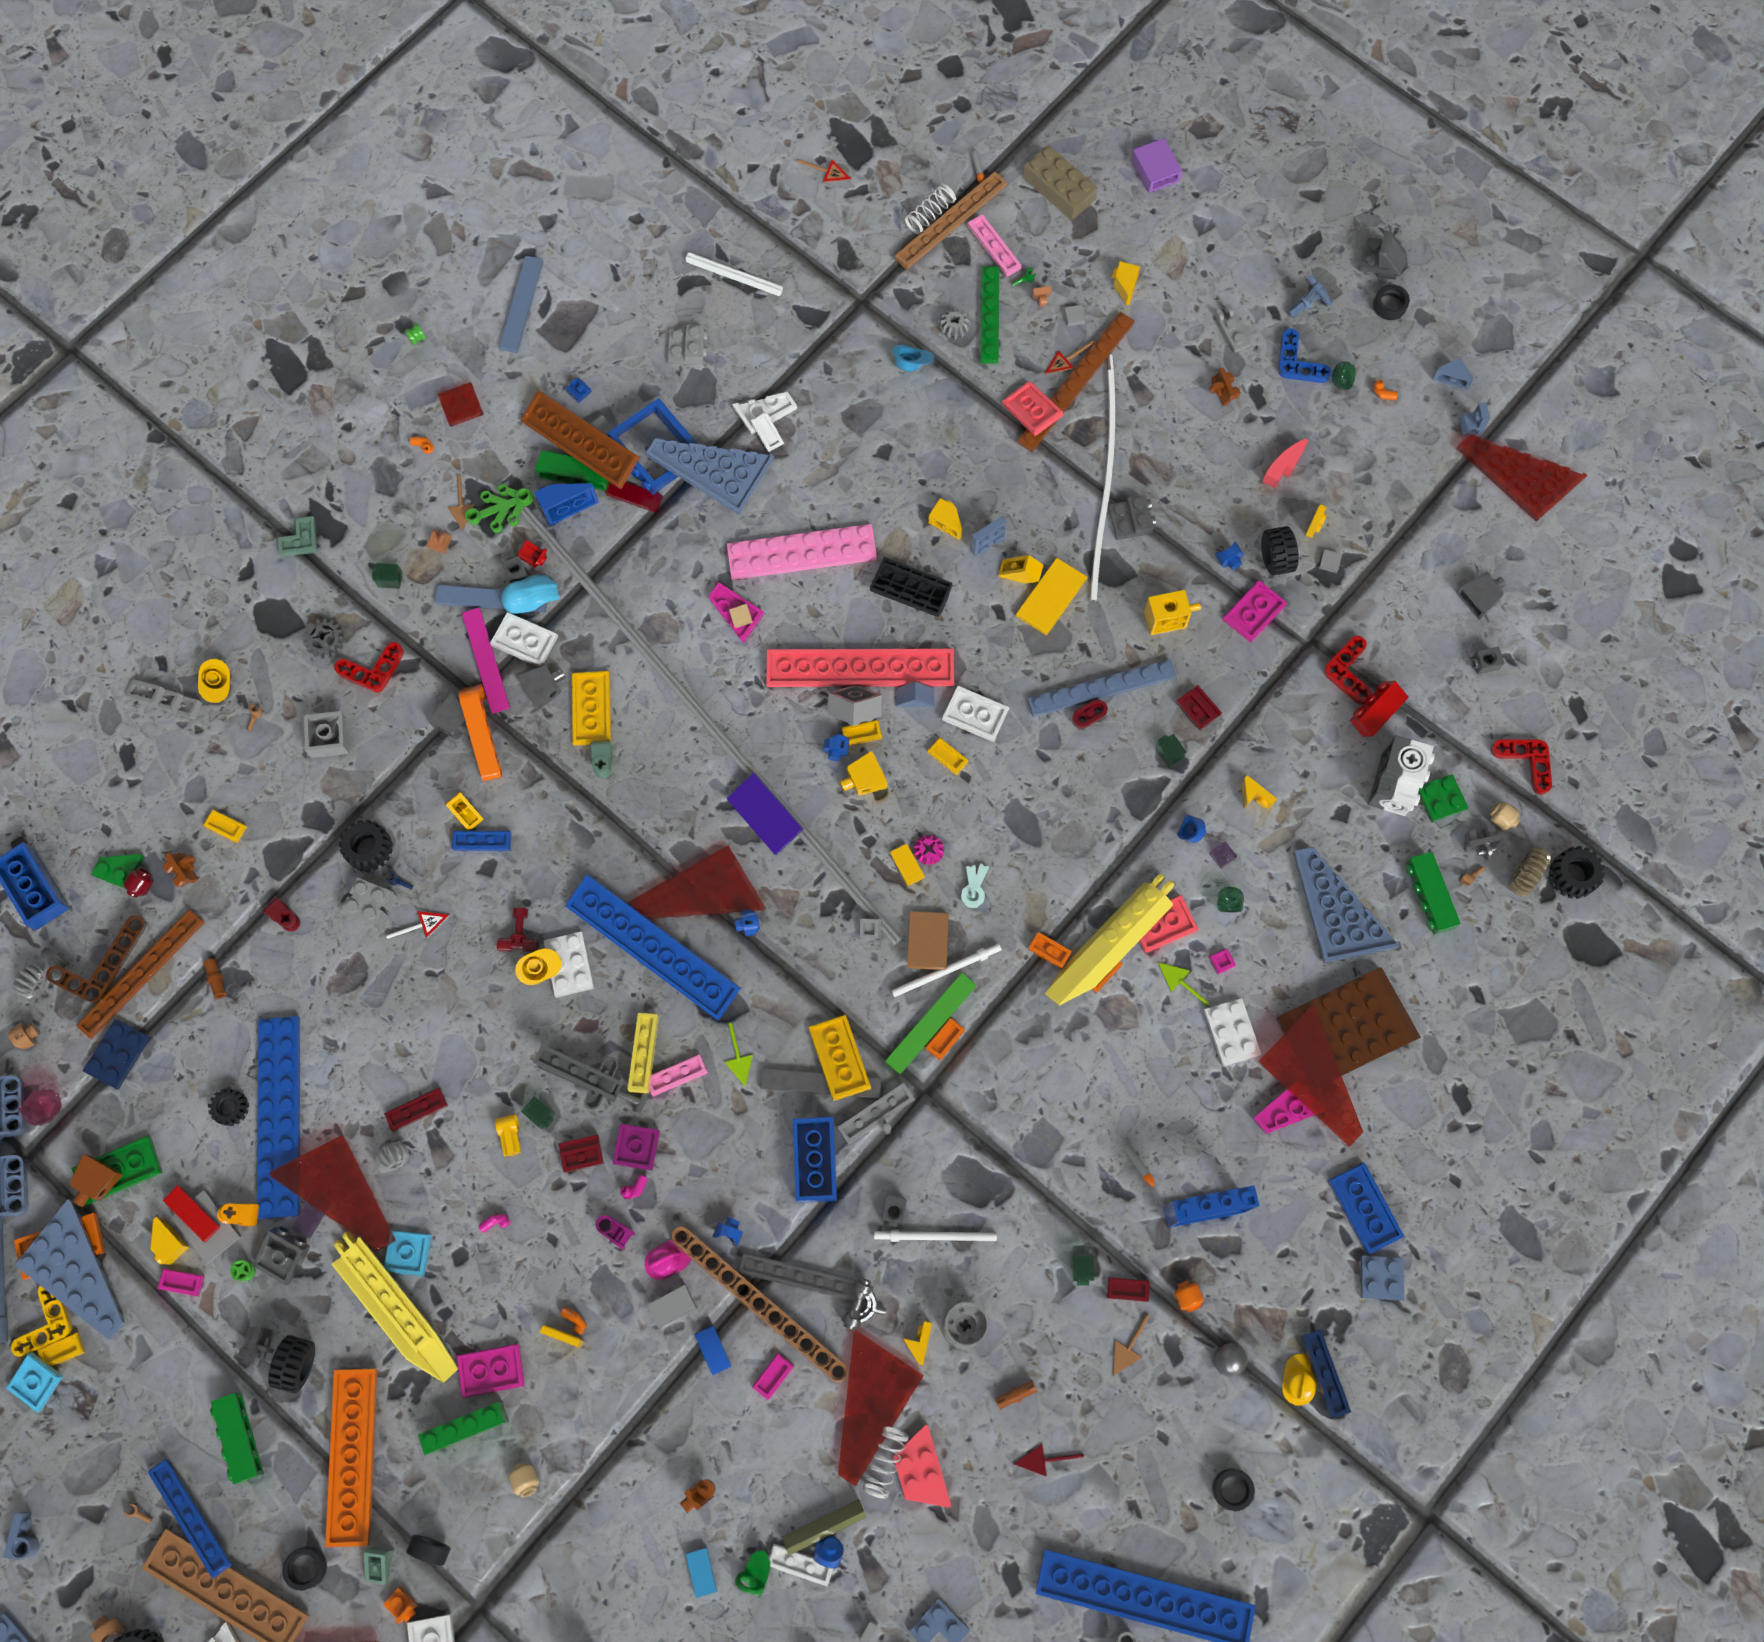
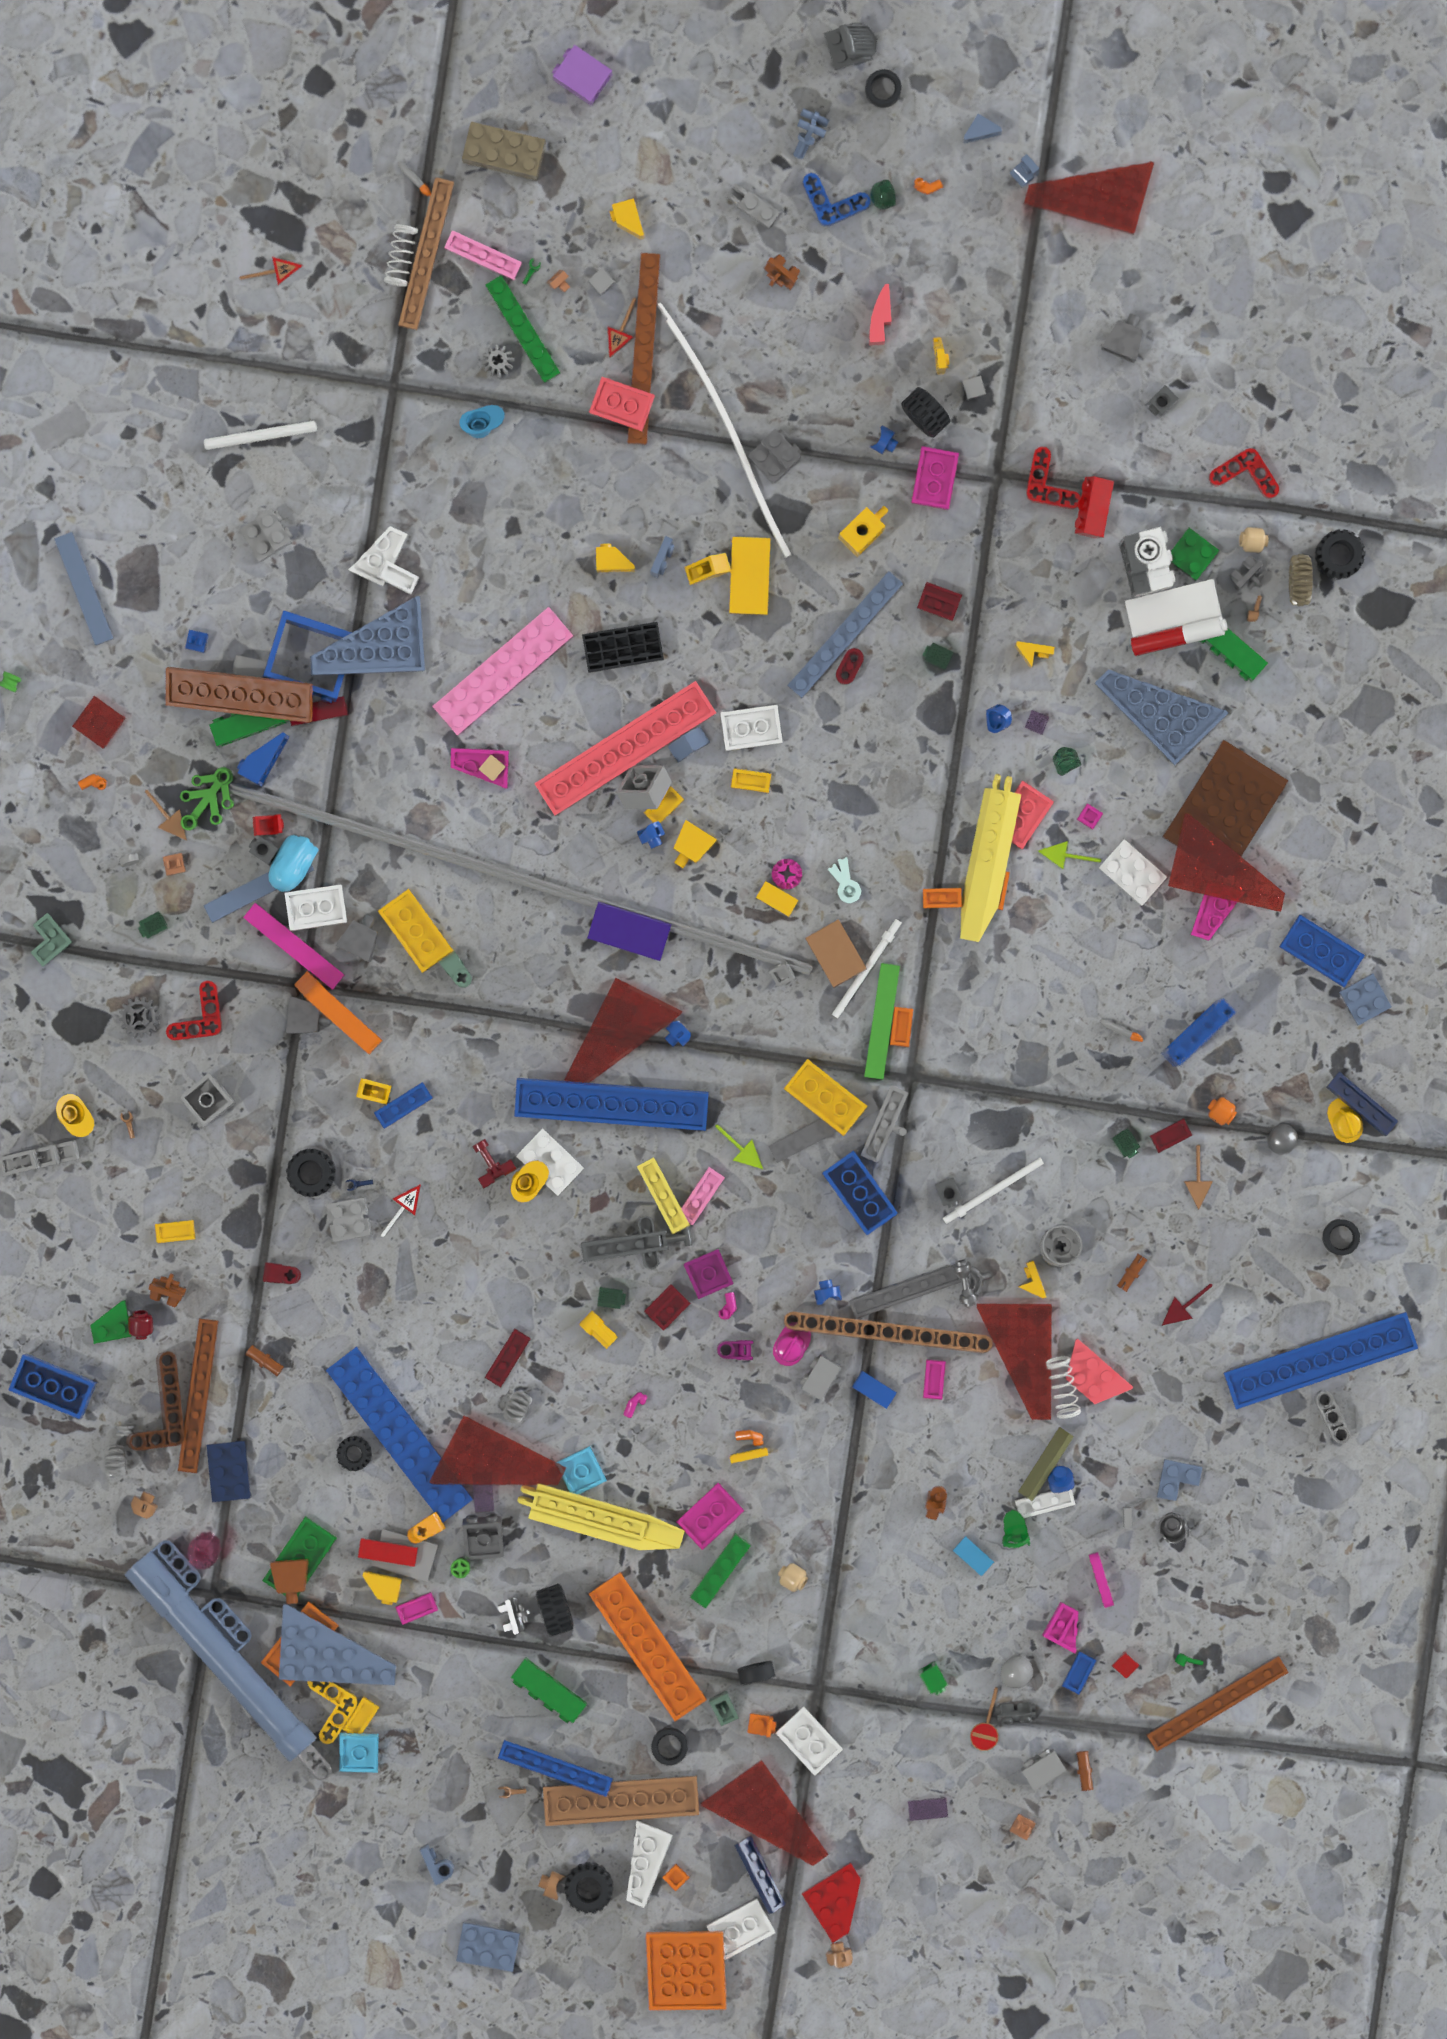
camera: 30 degrees left, 15 degrees up
(1398, 837) = (1175, 617): none -> white door

